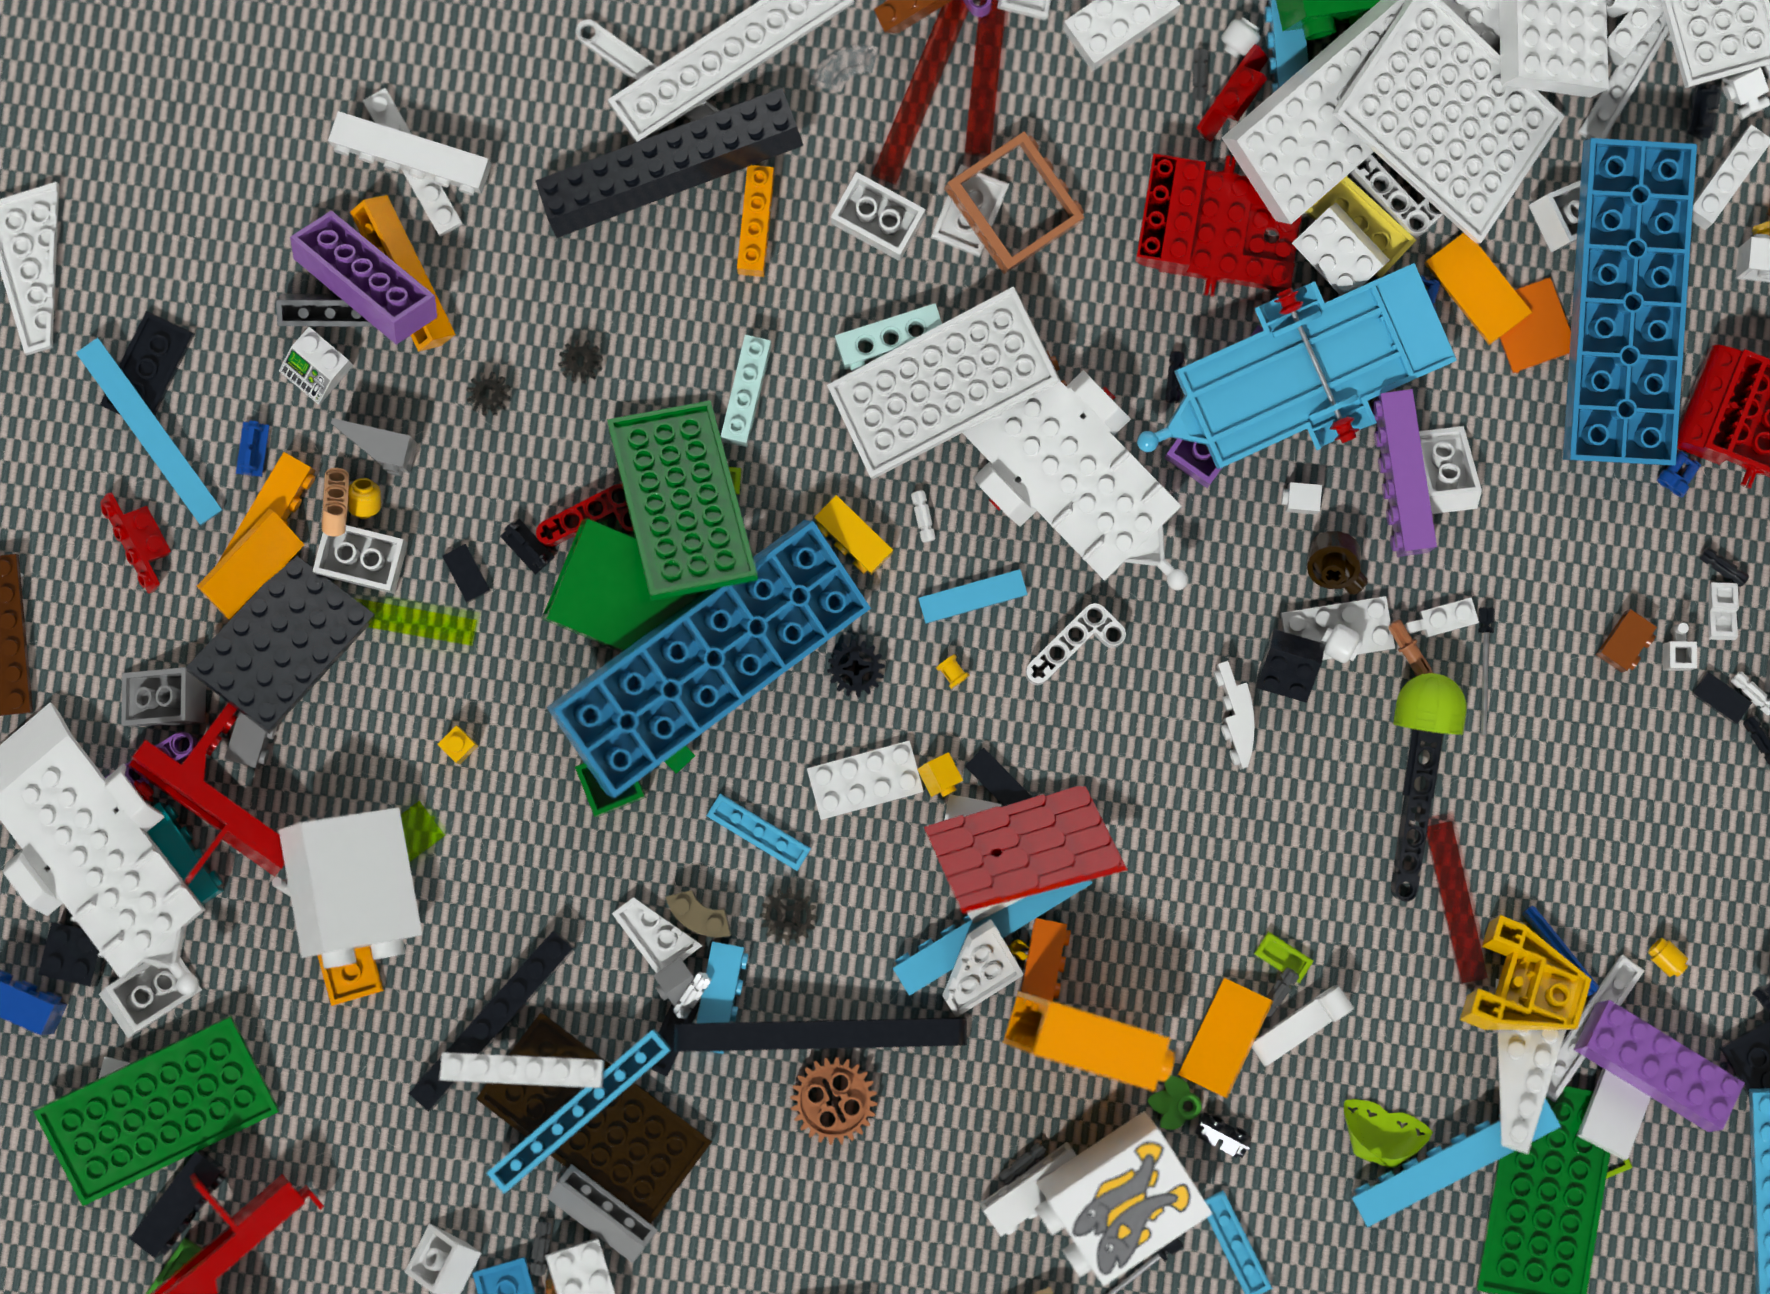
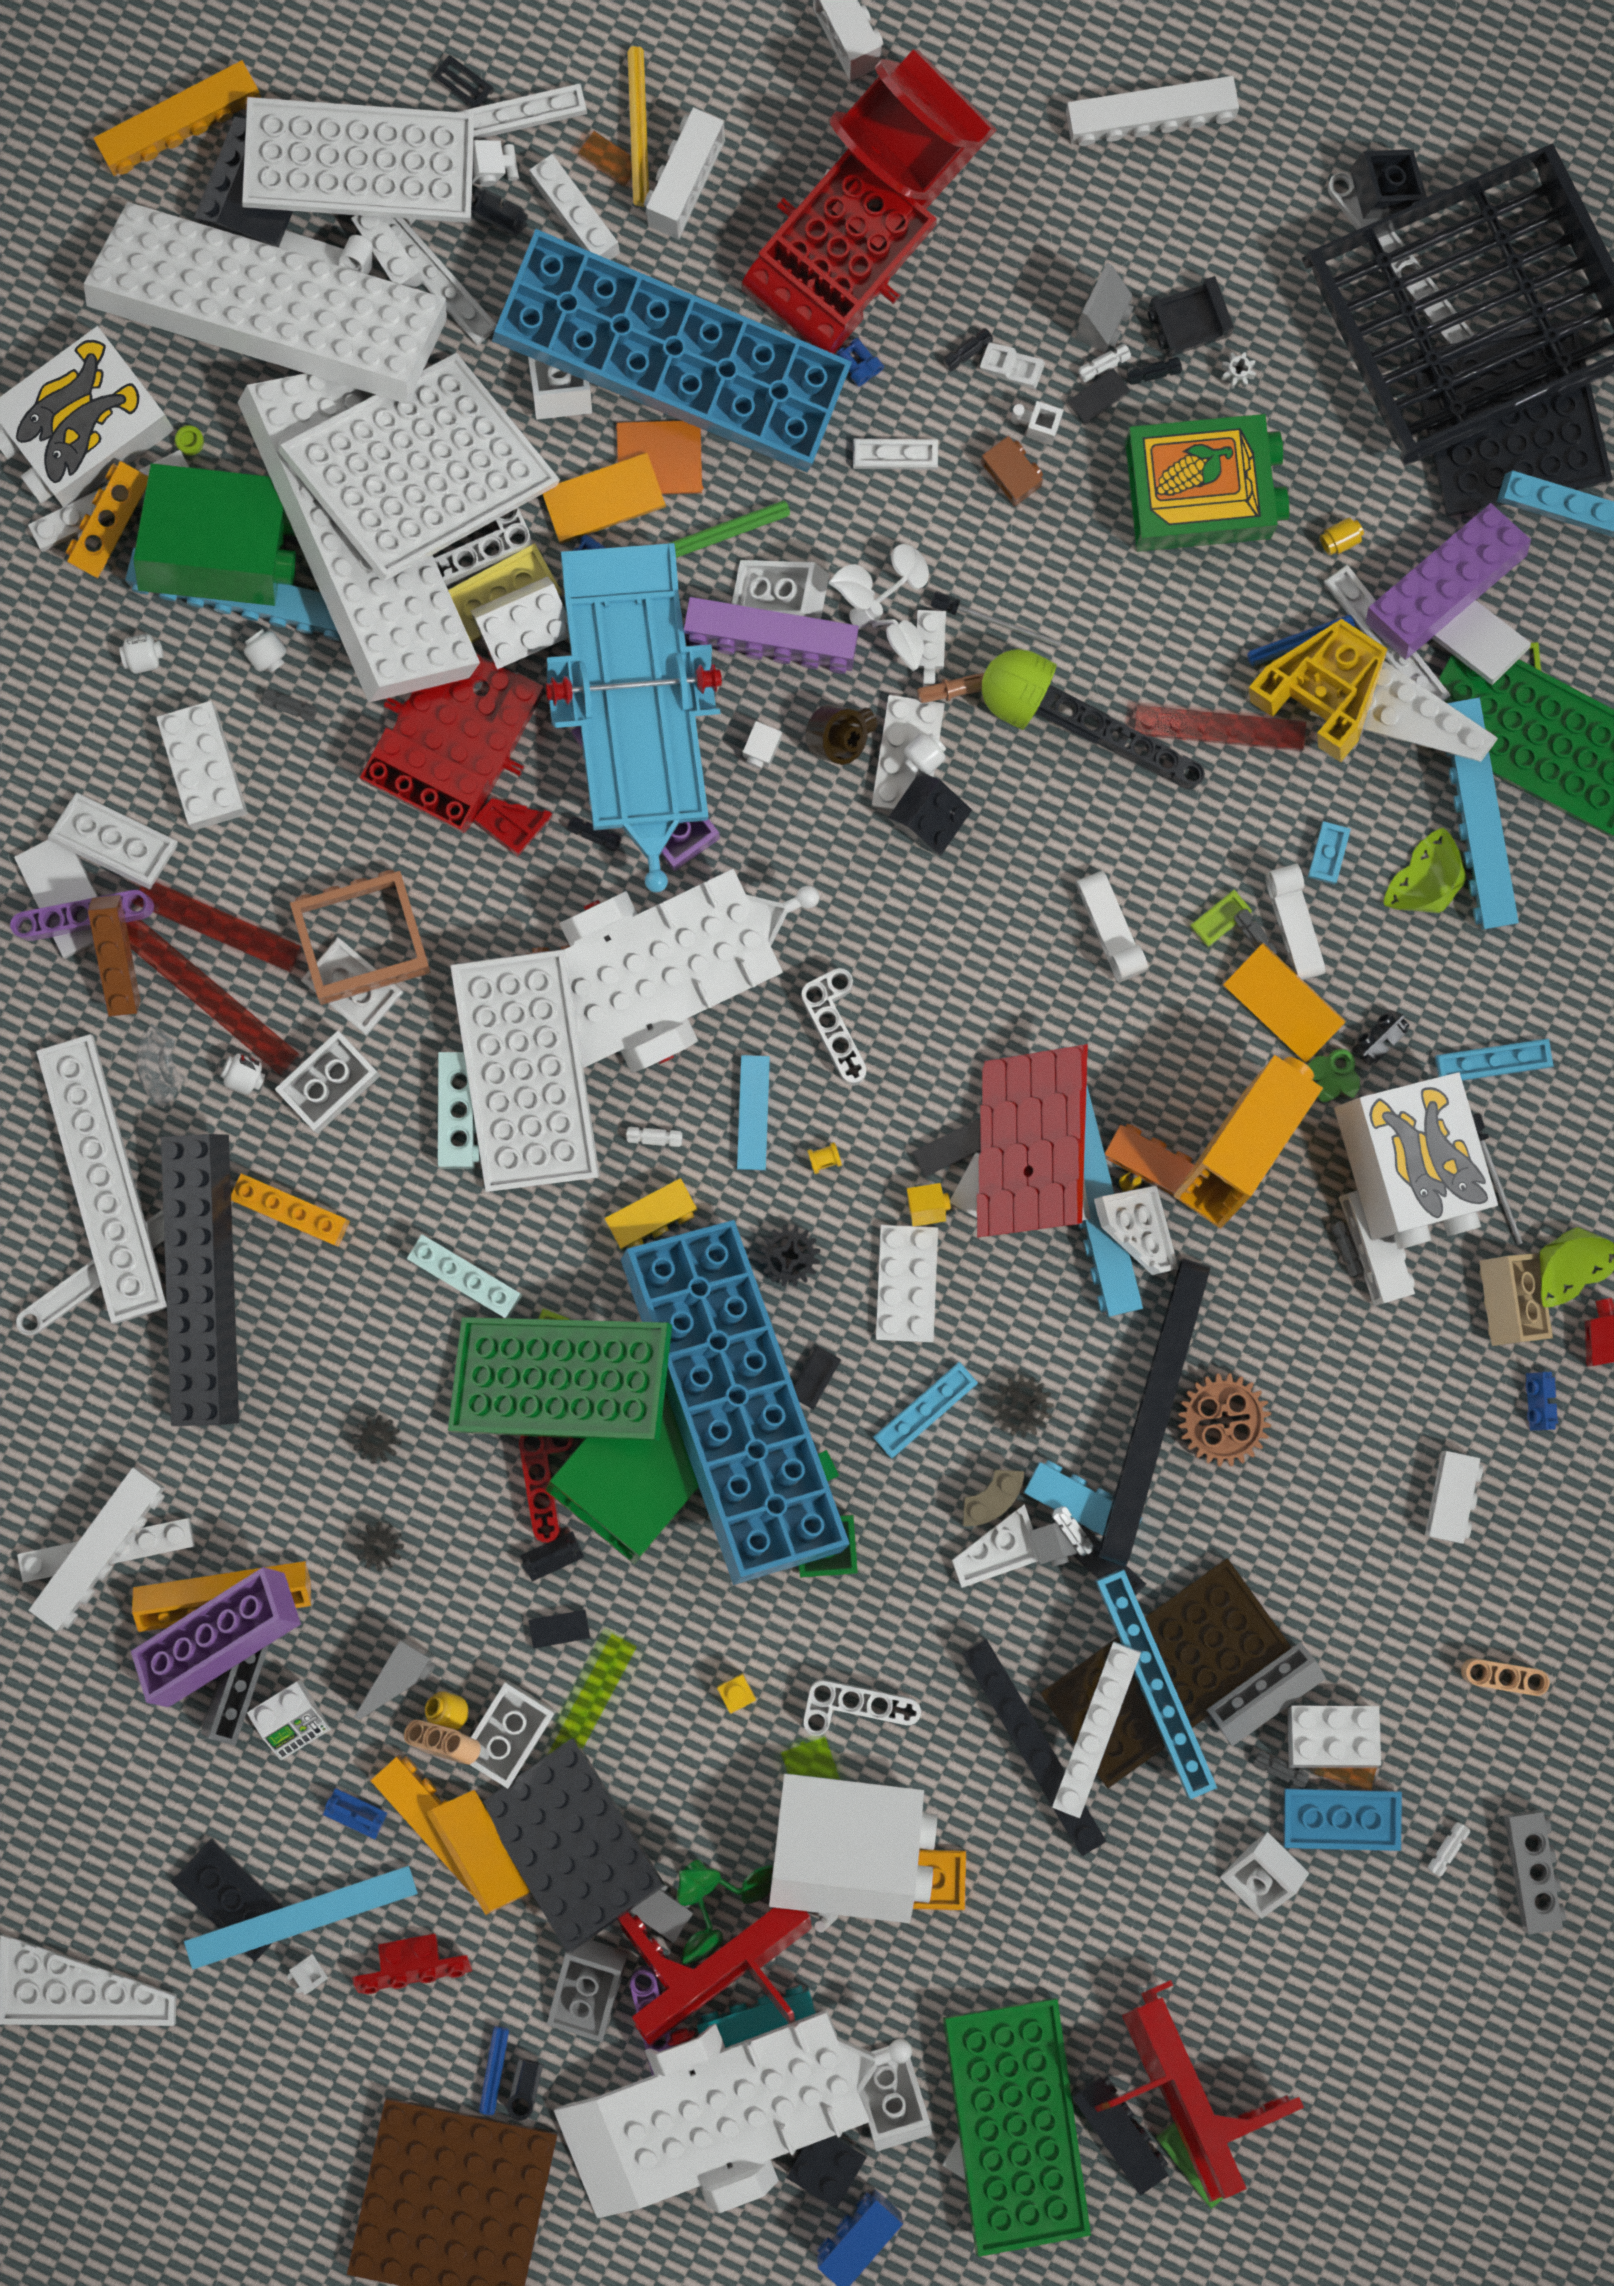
camera: 75 degrees left, 0 degrees up
(62, 671) = (525, 2086): none -> black piece
(69, 640) = (494, 2070): none -> blue axle
(102, 453) = (307, 1974): none -> white tile
(274, 758) = (699, 1881): none -> green plant
(478, 860) = (863, 1707): none -> white beam
(756, 725) = (815, 1377): none -> black tile
(861, 141) = (242, 1074): none -> white head
(1159, 302) = (511, 824): none -> red wing
(1236, 94) = (323, 673): red bracket -> none
(1239, 726) = (973, 884): white slope -> none
(1242, 860) = (1111, 928): none -> white beam
(1375, 1036) = (1329, 853): none -> medium azure plate
(1470, 532) = (856, 587): none -> white plant
(1488, 407) = (731, 528): none -> bright green axle
(1606, 532) = (895, 454): none -> white tile
(1675, 817) = (1204, 482): none -> brick

